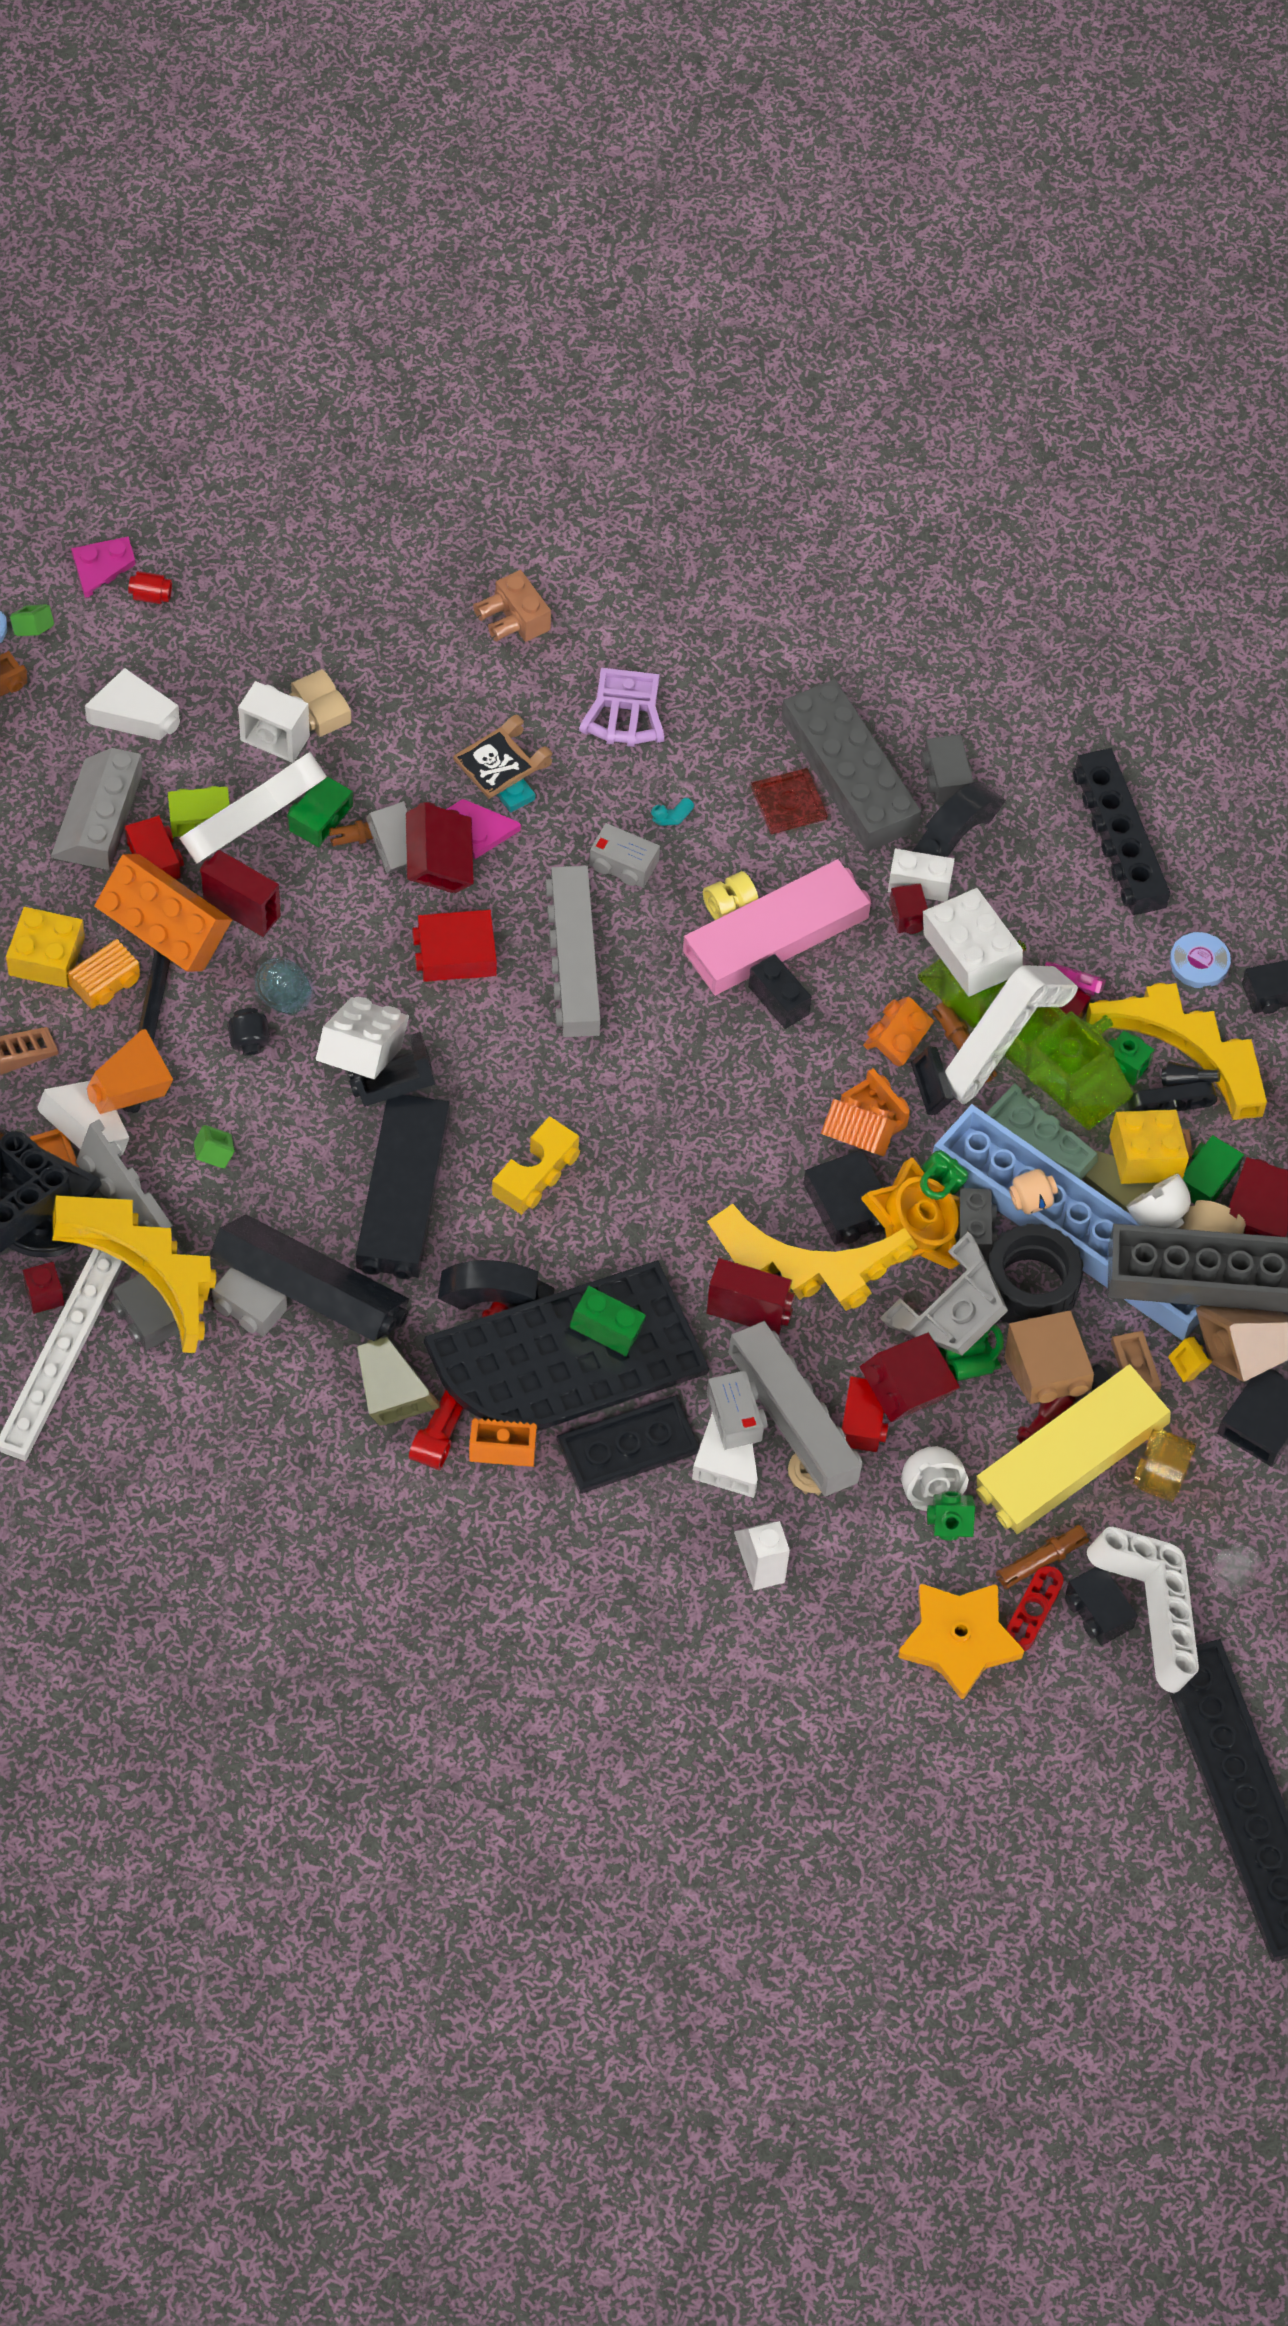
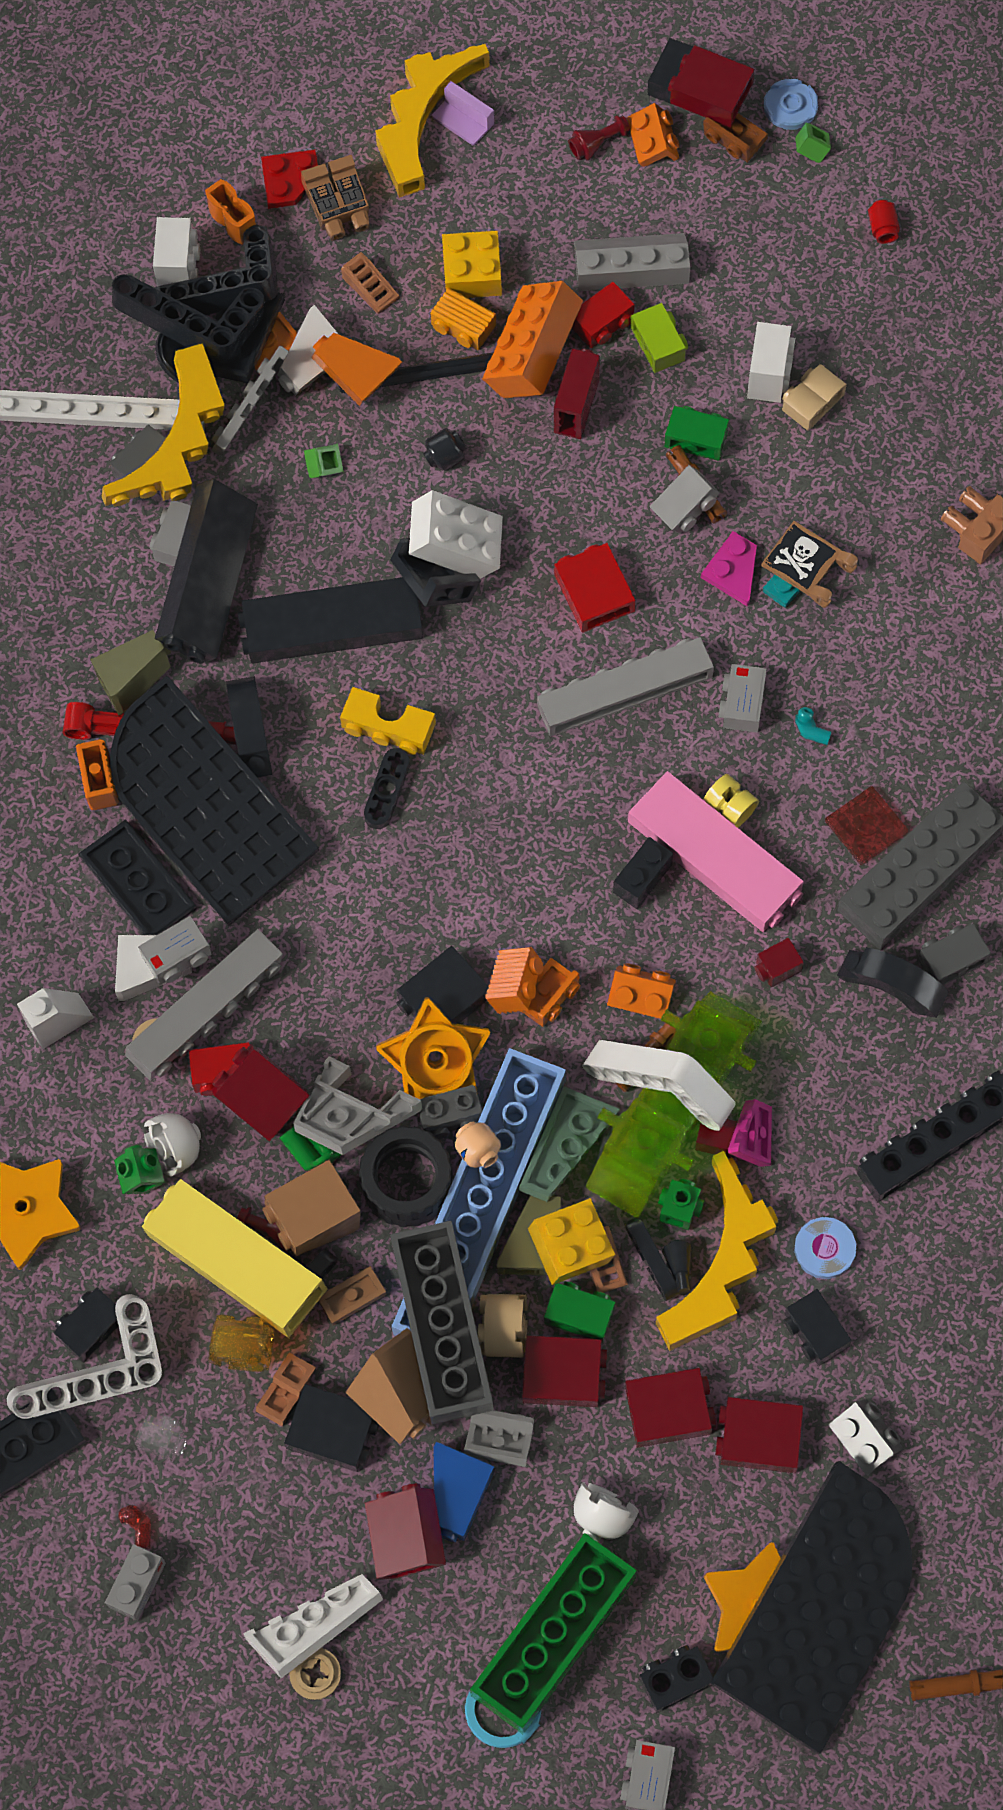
camera: 80 degrees right, 10 degrees up
(43, 1287) = (138, 374): dark red brick -> none
(102, 562) = (898, 176): dark pink wing -> none
(133, 708) = (749, 249): white slope -> none
(253, 808) = (652, 366): white beam -> none
(283, 986) = (503, 462): clear light blue piece -> none
(439, 848) = (683, 536): dark red brick -> none
(605, 1178) = (387, 810): none -> black beam
(607, 1321) = (230, 818): green brick -> none
(625, 691) = (931, 649): lavender plate -> none
(750, 1296) = (302, 934): dark red brick -> none
(843, 1271) = (352, 938): yellow arch -> none
(929, 870) = (819, 962): white brick -> none
(932, 1080) = (594, 1033): black tile -> none
(946, 1172) = (491, 1058): green piece -> none
(972, 941) = (727, 1015): white brick -> none
(1036, 1585) = (67, 1257): red beam -> none
(1052, 1551) = (136, 1270): dark orange pin -> none
(1162, 1205) = (506, 1267): white cylinder -> none
(1189, 1359) = (369, 1342): yellow tile -> none
(1213, 1450) = (285, 1389): none -> nougat slope

